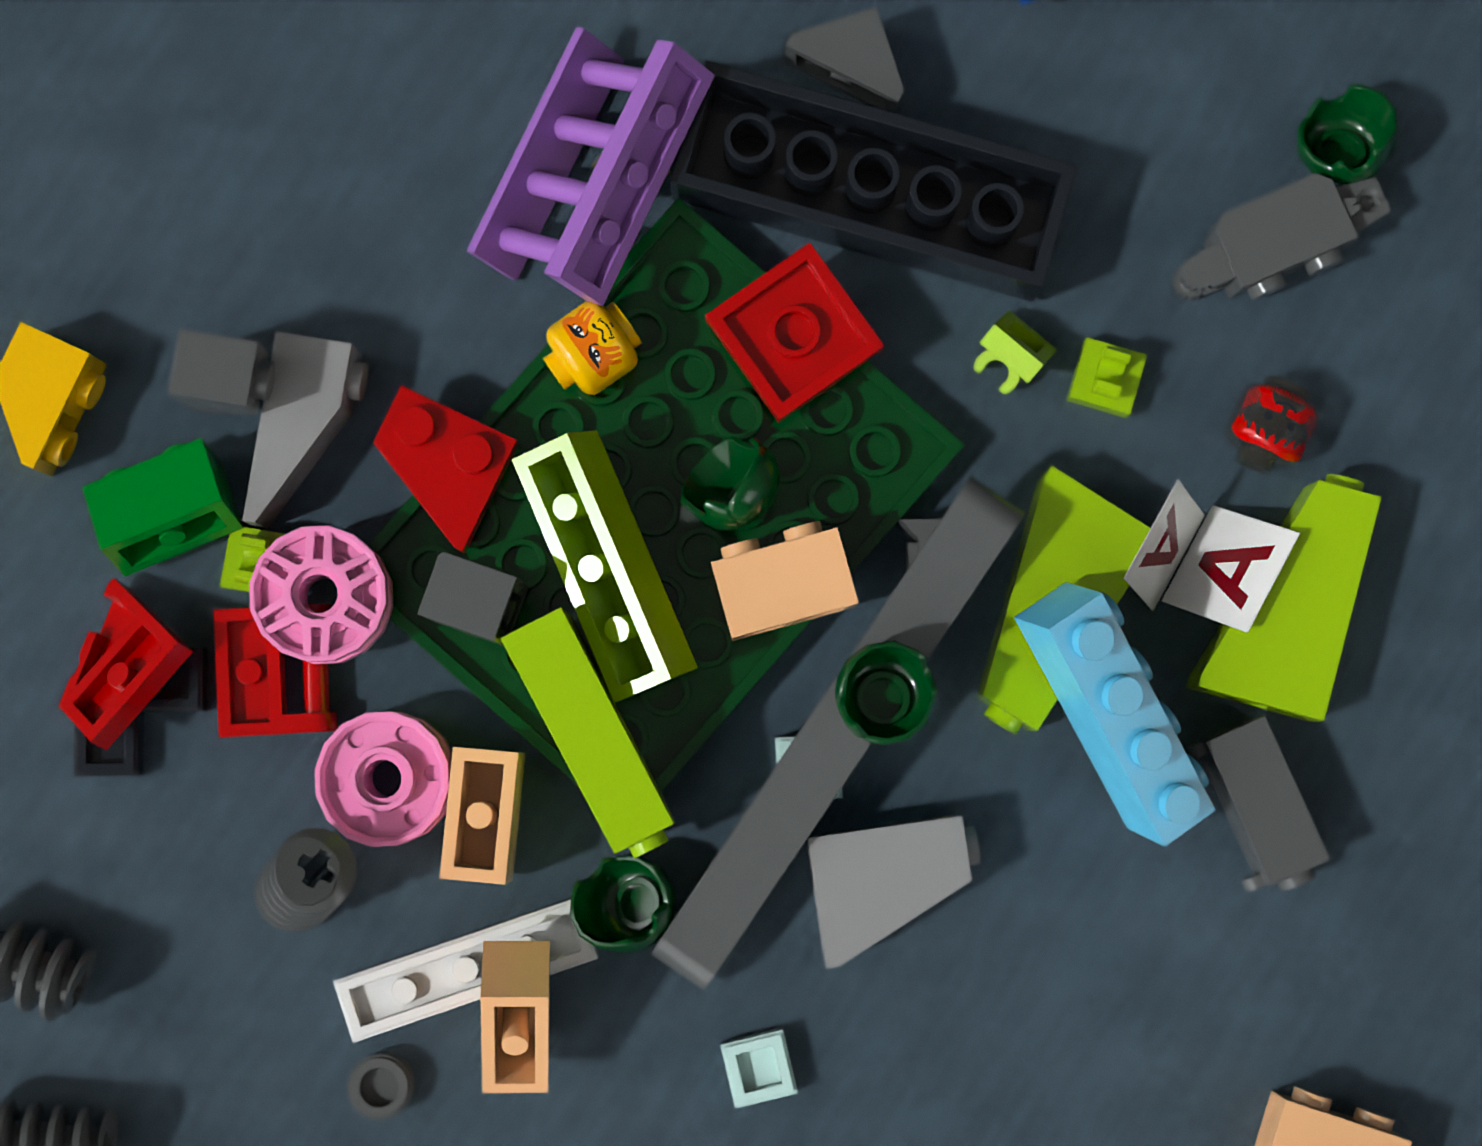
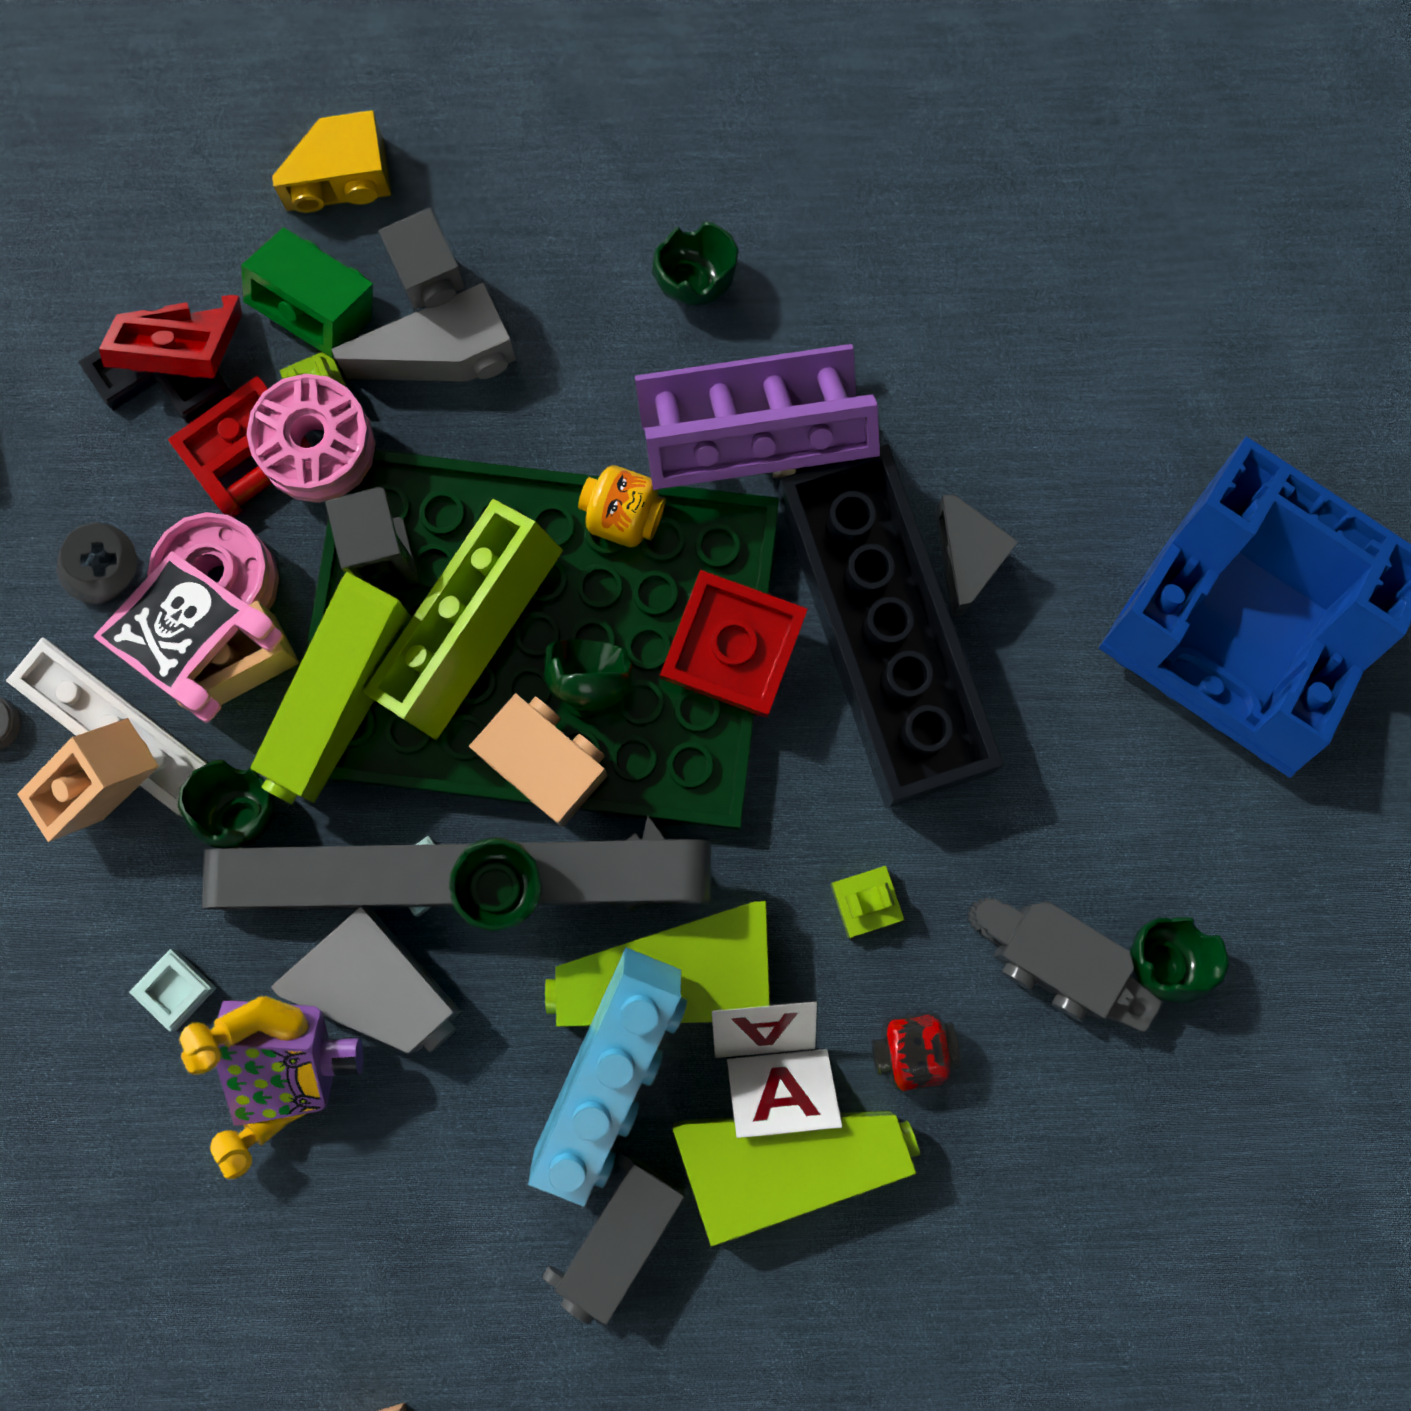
camera: 55 degrees right, 5 degrees down
(393, 117) = (696, 264): none -> dark green hair
(428, 837) = (178, 627): none -> flag
(445, 461) = (468, 461): red wing -> none
(904, 1013) = (271, 1069): none -> torso
(1017, 347) = (840, 817): lime tile -> none

